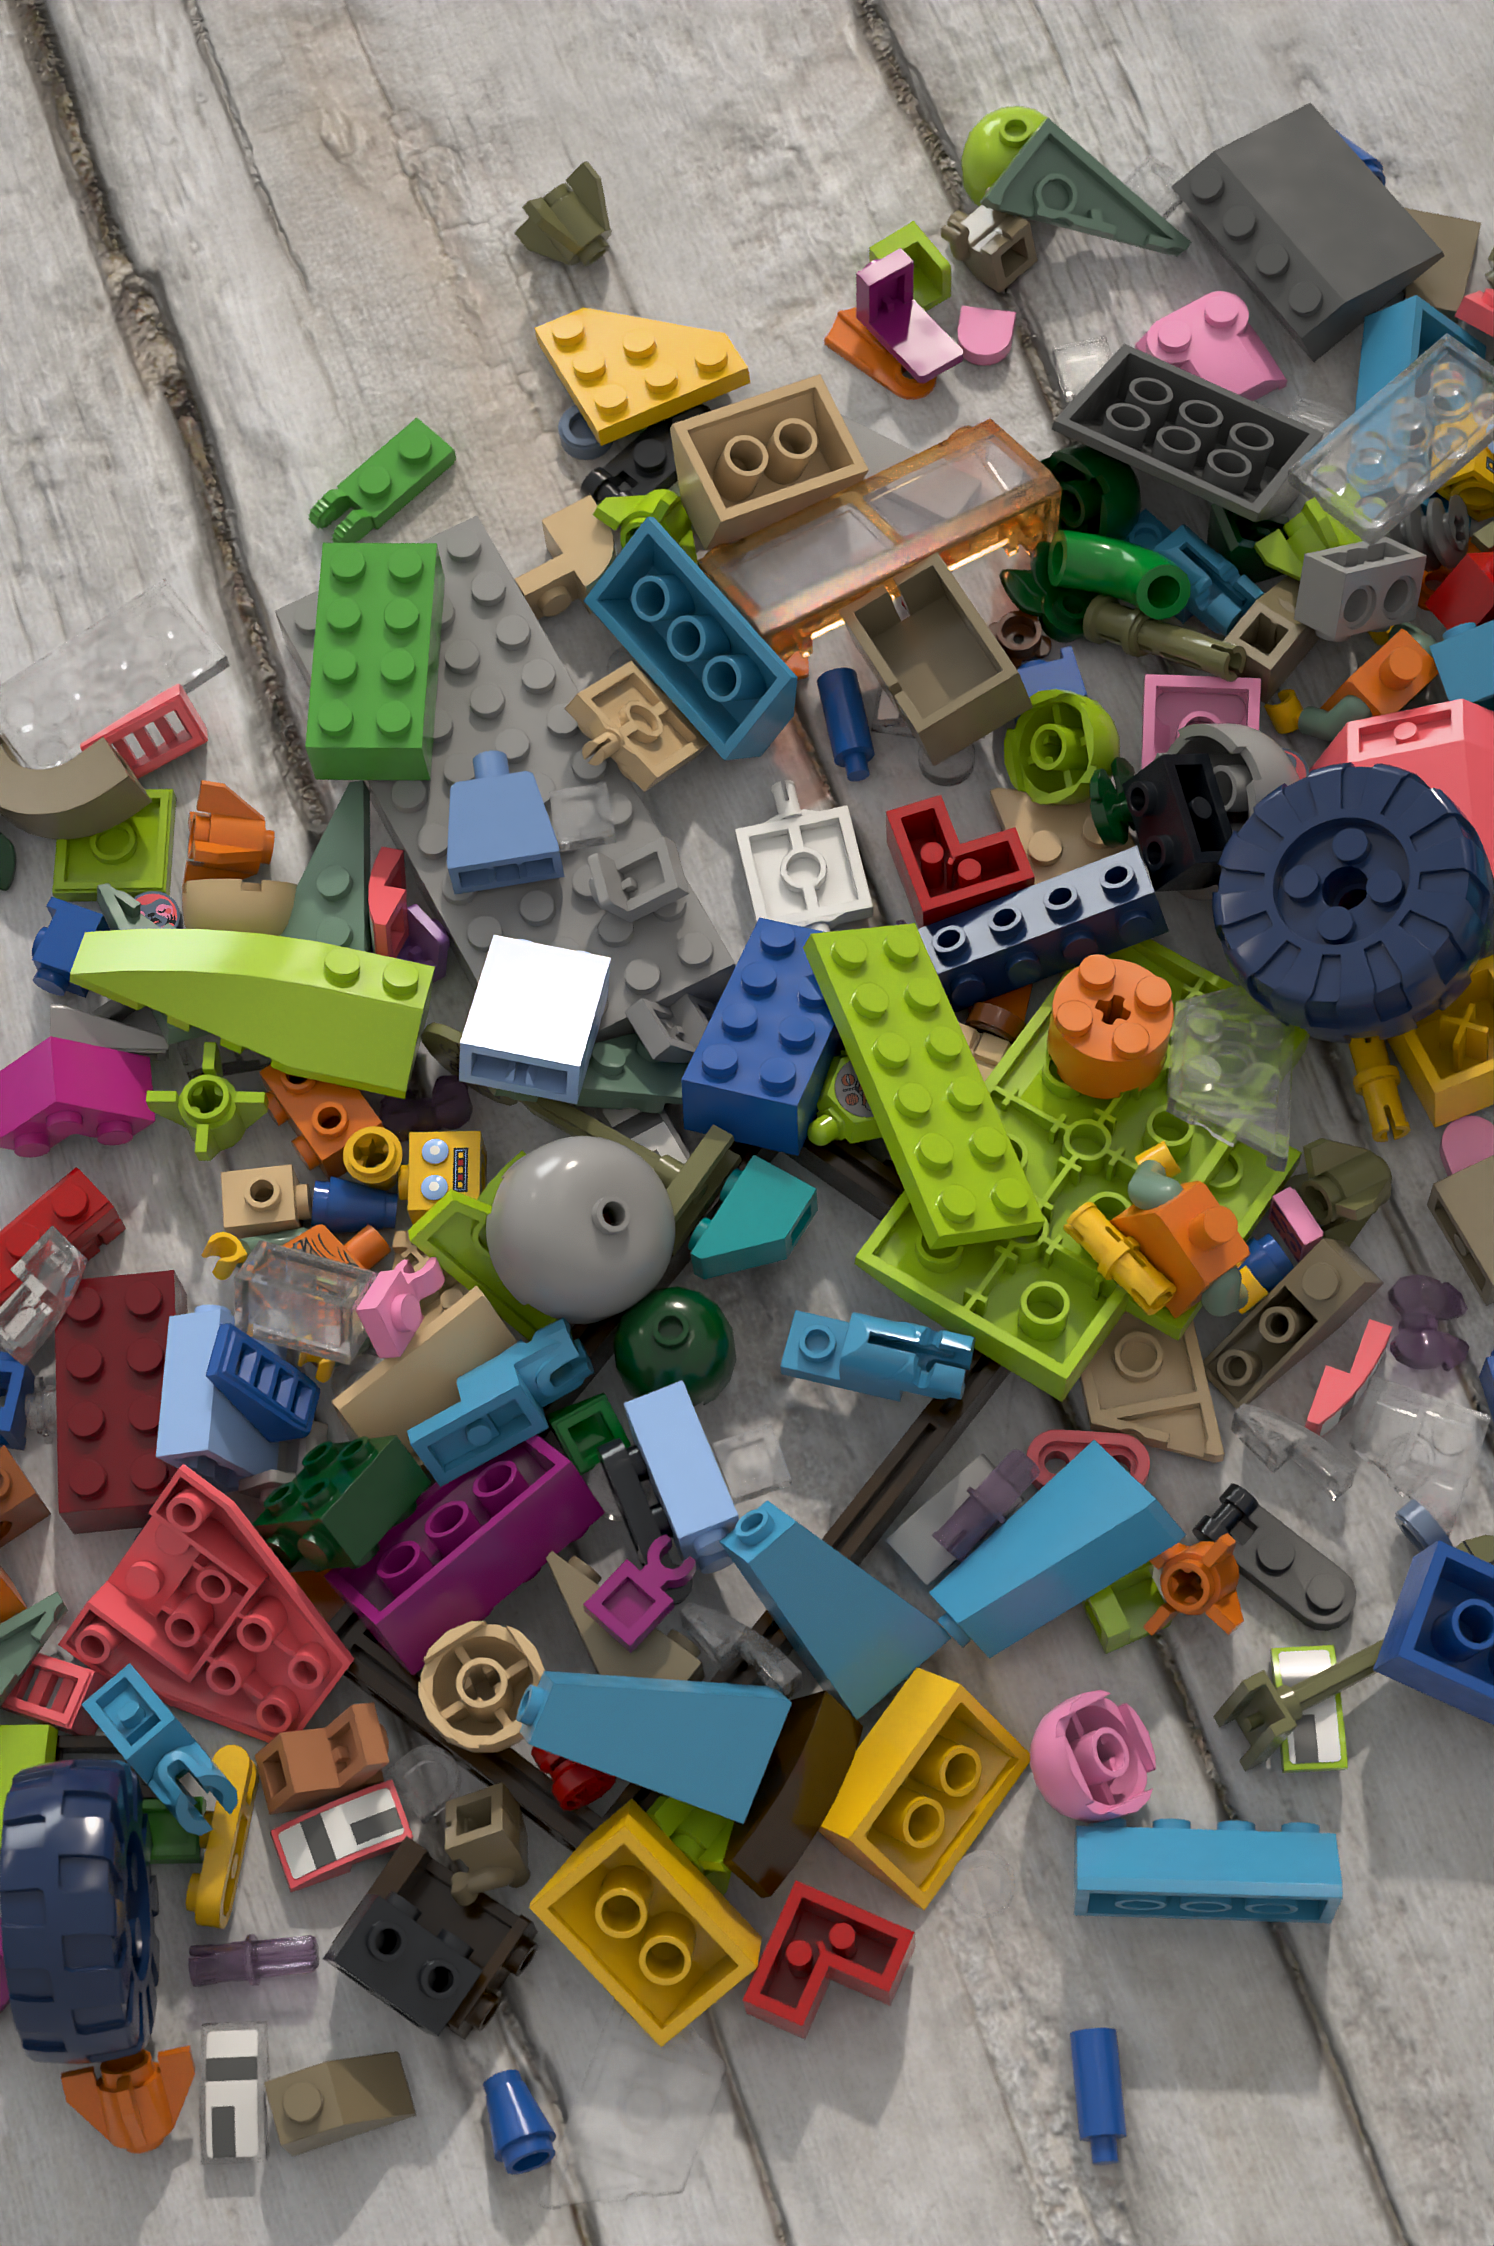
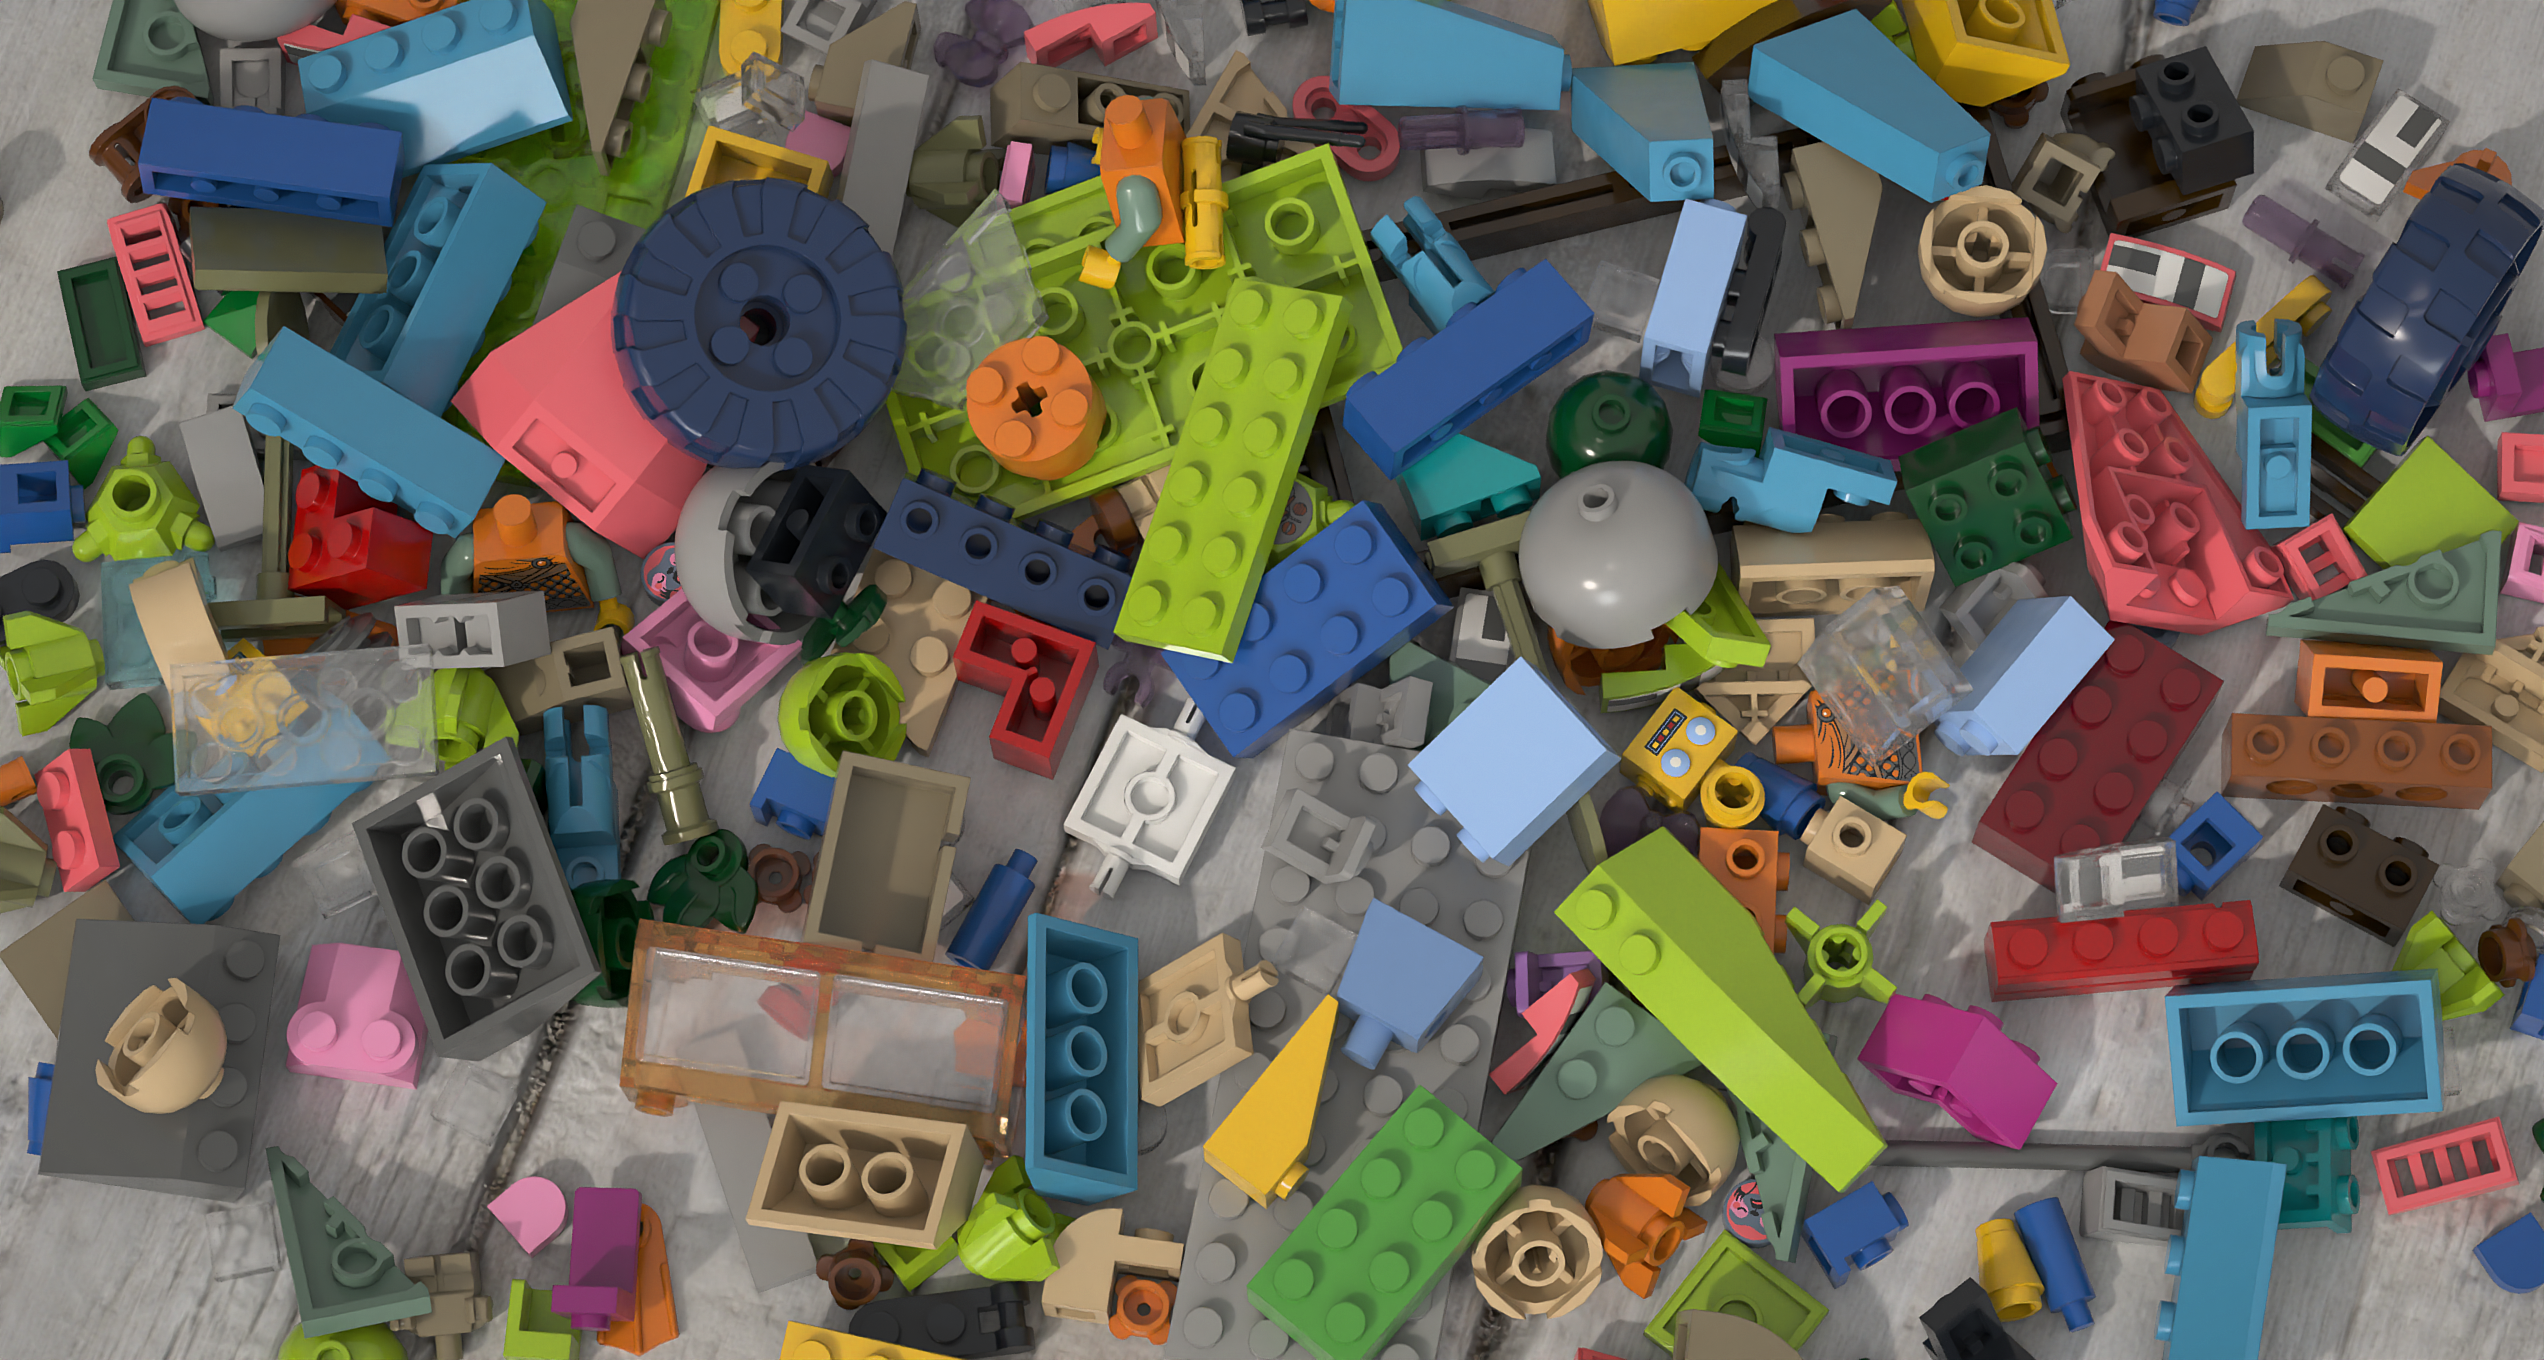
camera: 145 degrees left, 5 degrees up
(107, 1033) = (1902, 1114): light grey slope -> none
(266, 1389) = (1979, 642): blue slope -> none
(275, 770) = (1538, 1254): none -> tan cylinder
(392, 1305) = (1825, 597): bright pink plate -> none
(511, 677) = (1273, 1125): none -> yellow slope
(522, 550) = (1131, 1295): none -> orange plate
(635, 1600) = (1814, 217): magenta plate -> none
(806, 1276) = (1466, 367): none -> blue brick
(1118, 571) = (644, 831): green cylinder -> none
(1133, 1379) = (1262, 137): none -> black plant
(1285, 178) = (165, 1050): none -> tan cylinder
(1395, 1128) = (882, 147): none -> light grey tile

